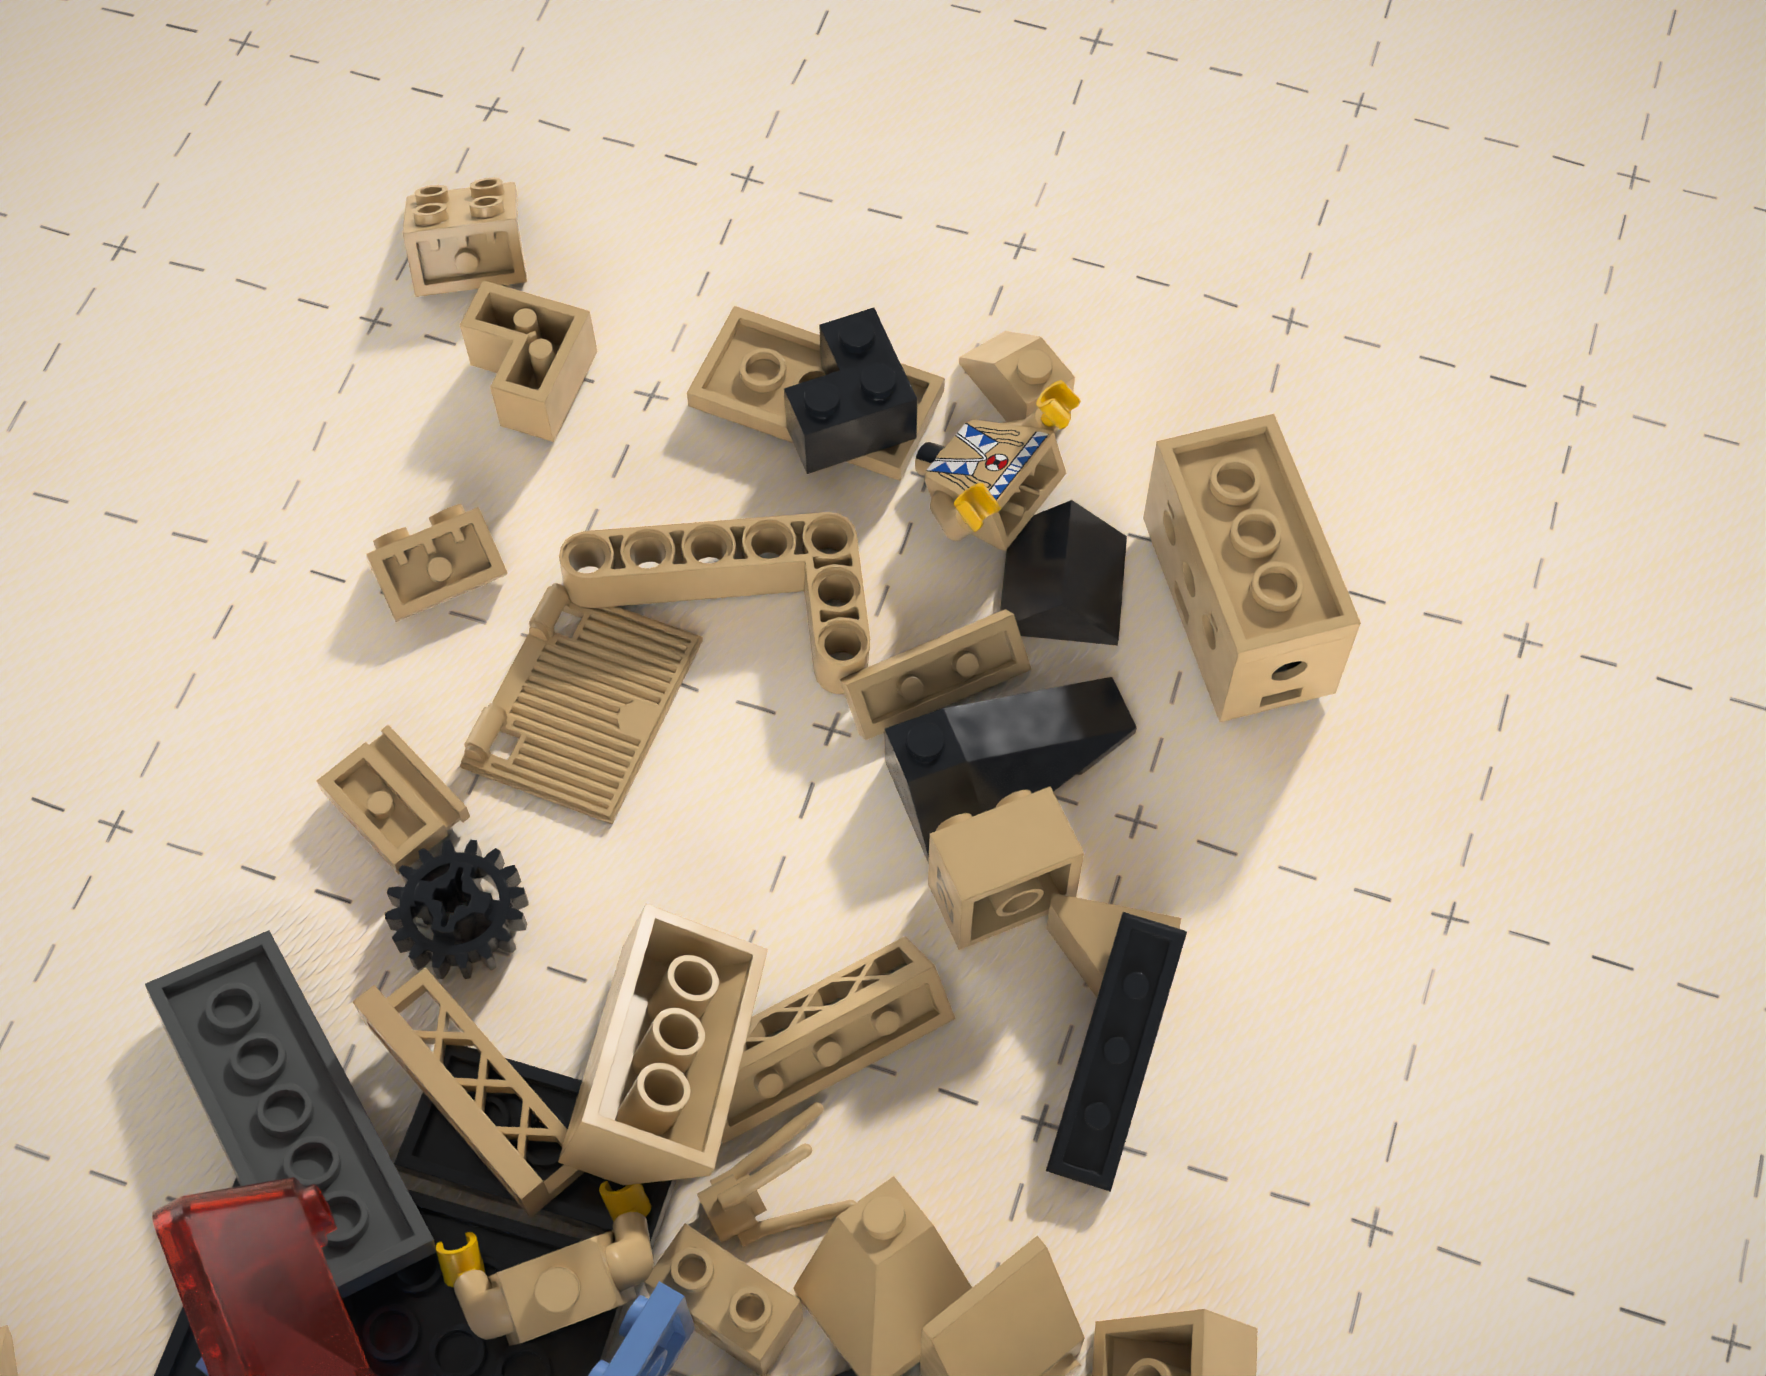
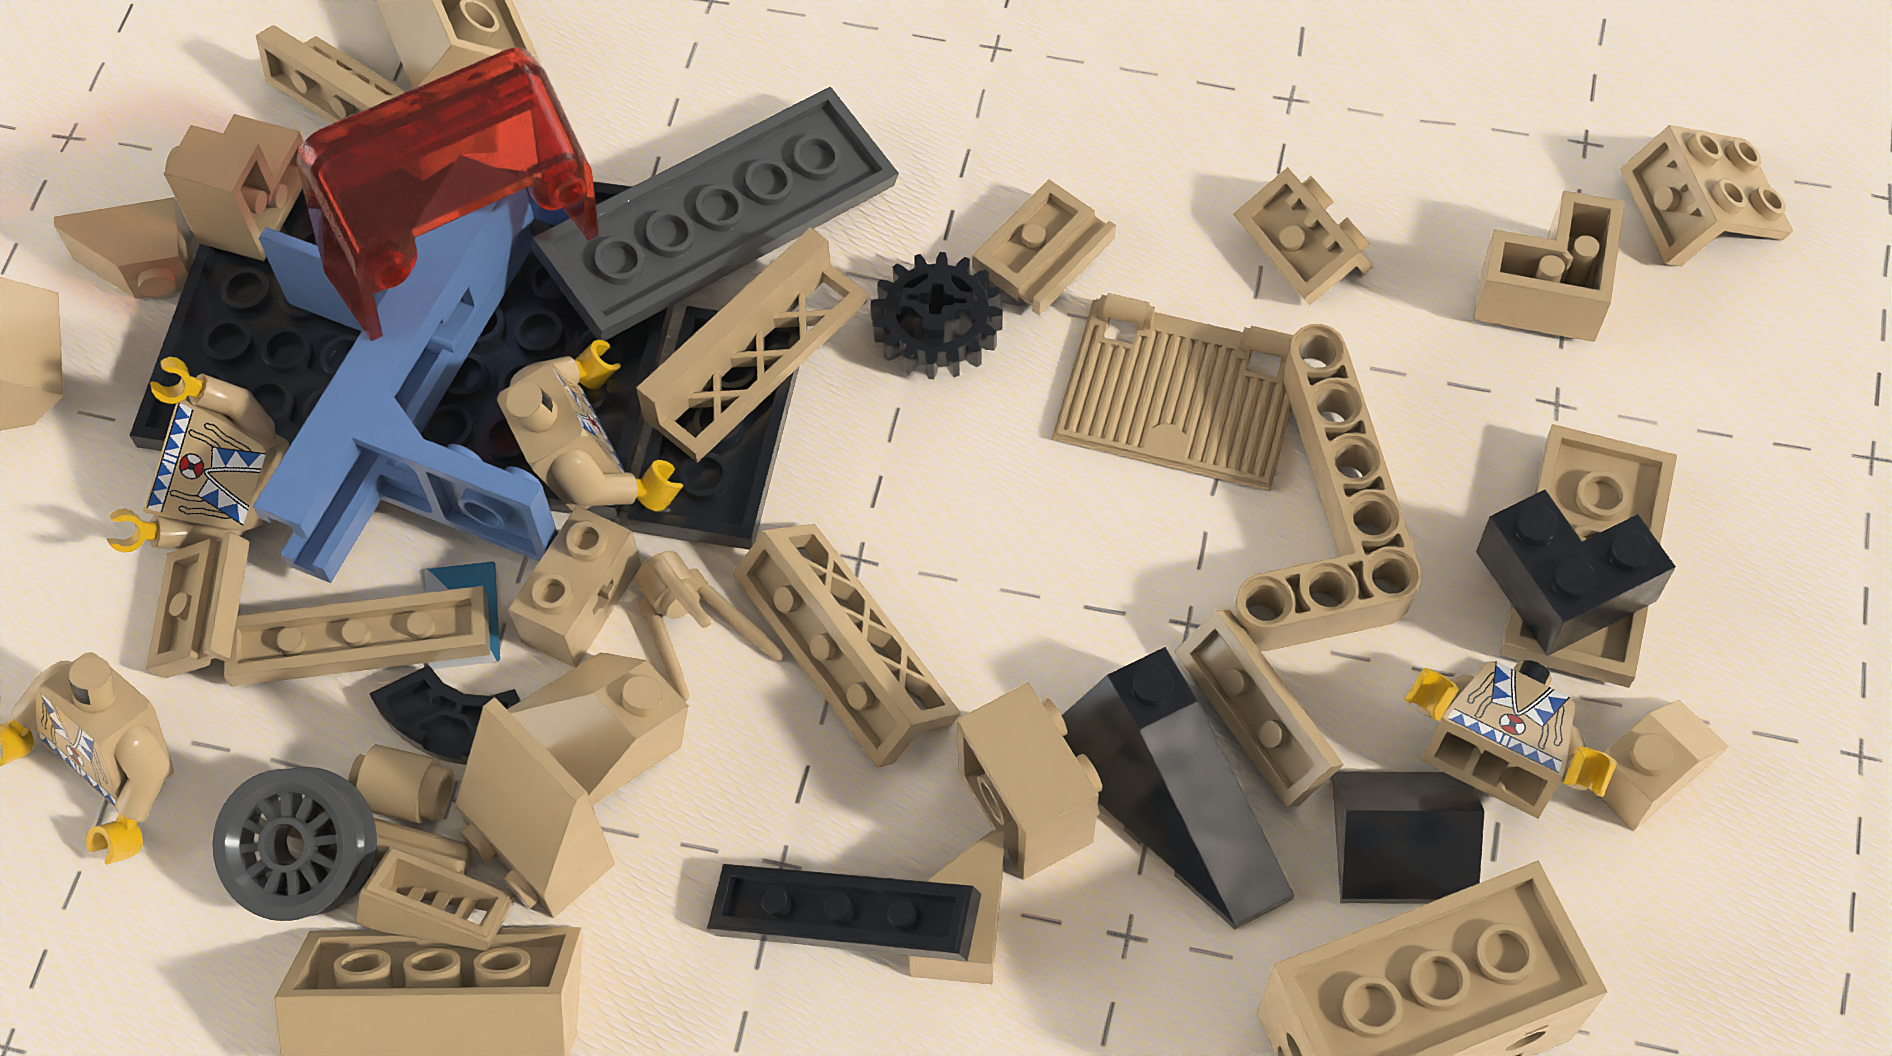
camera: 85 degrees right, 0 degrees up
(665, 1053) = (797, 489): tan slope -> none

